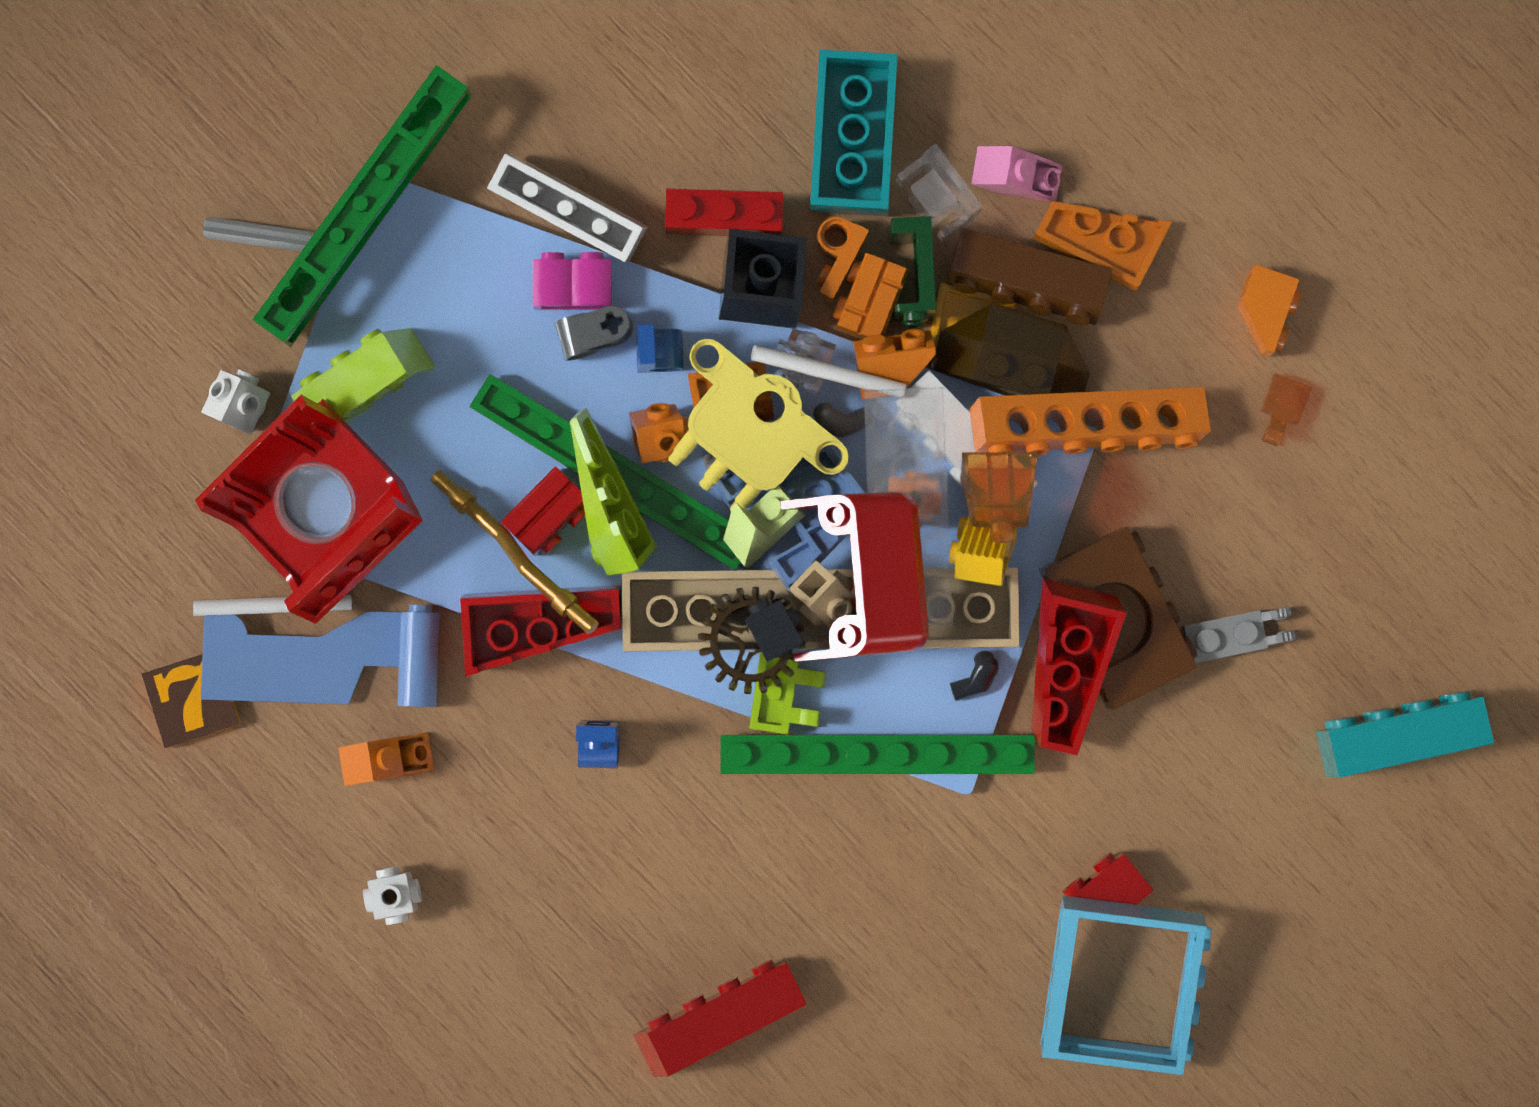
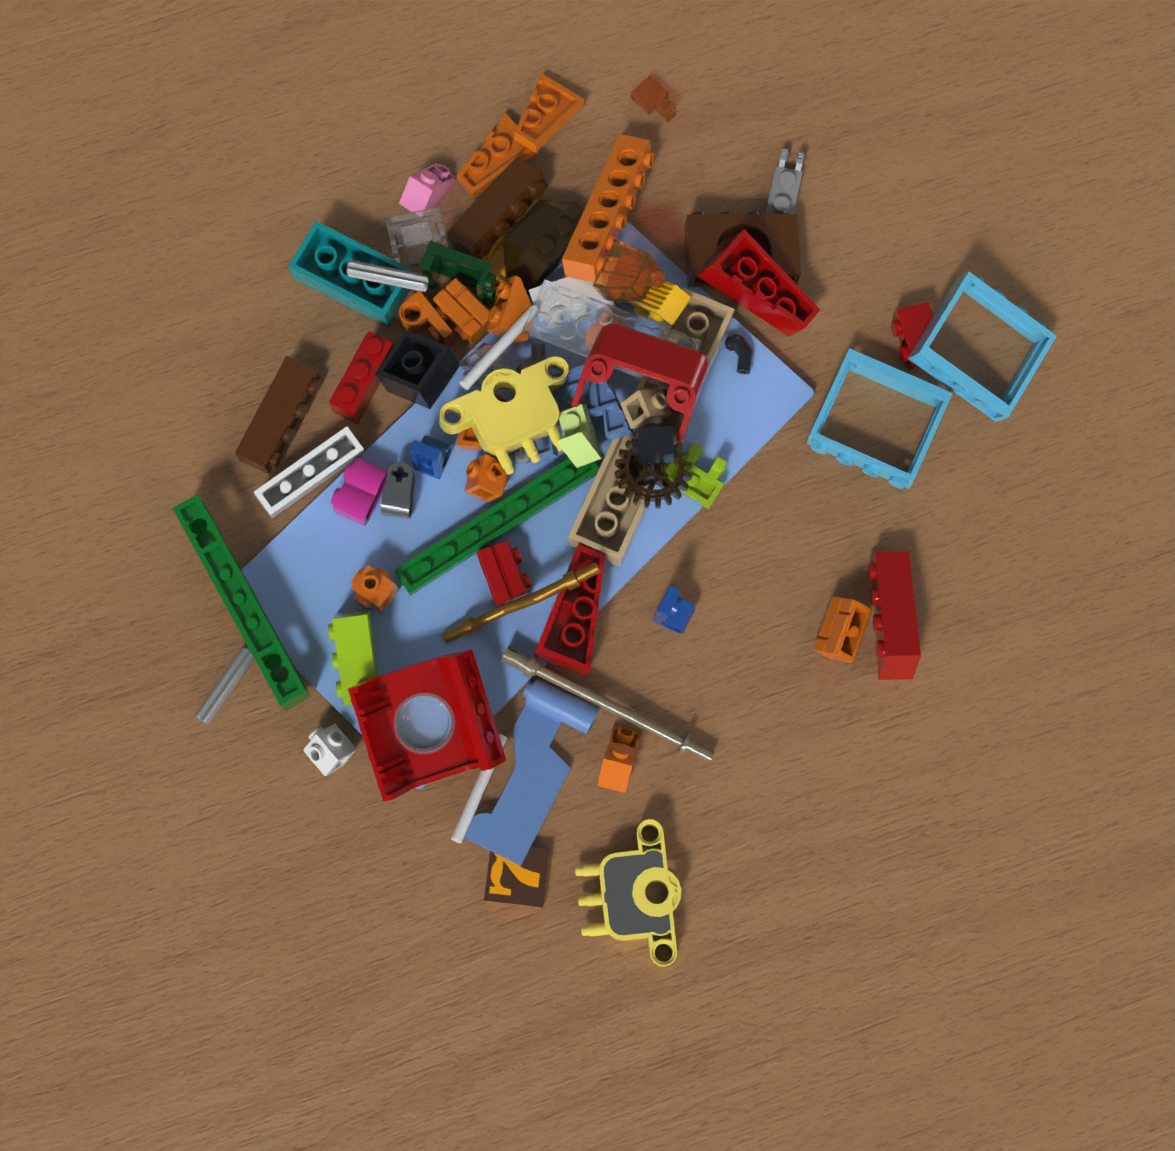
camera: 65 degrees left, 10 degrees down
(209, 848) = (623, 897): none -> piece
(407, 892) = (709, 804): white brick -> none
(447, 602) = (532, 666): none -> dark tan bar
(461, 372) = (380, 595): none -> orange brick
(614, 523) = (535, 531): lime wedge -> none
(626, 131) = (278, 415): none -> reddish brown brick
(668, 963) = (842, 629): none -> orange brick
(862, 183) = (387, 275): none -> light grey axle
(877, 754) = (761, 438): green plate -> none
(1033, 894) = (898, 381): none -> medium azure window
(1193, 278) = (546, 113): none -> orange wing
(1265, 305) = (586, 78): orange slope -> none
(1405, 736) = (895, 111): teal brick -> none

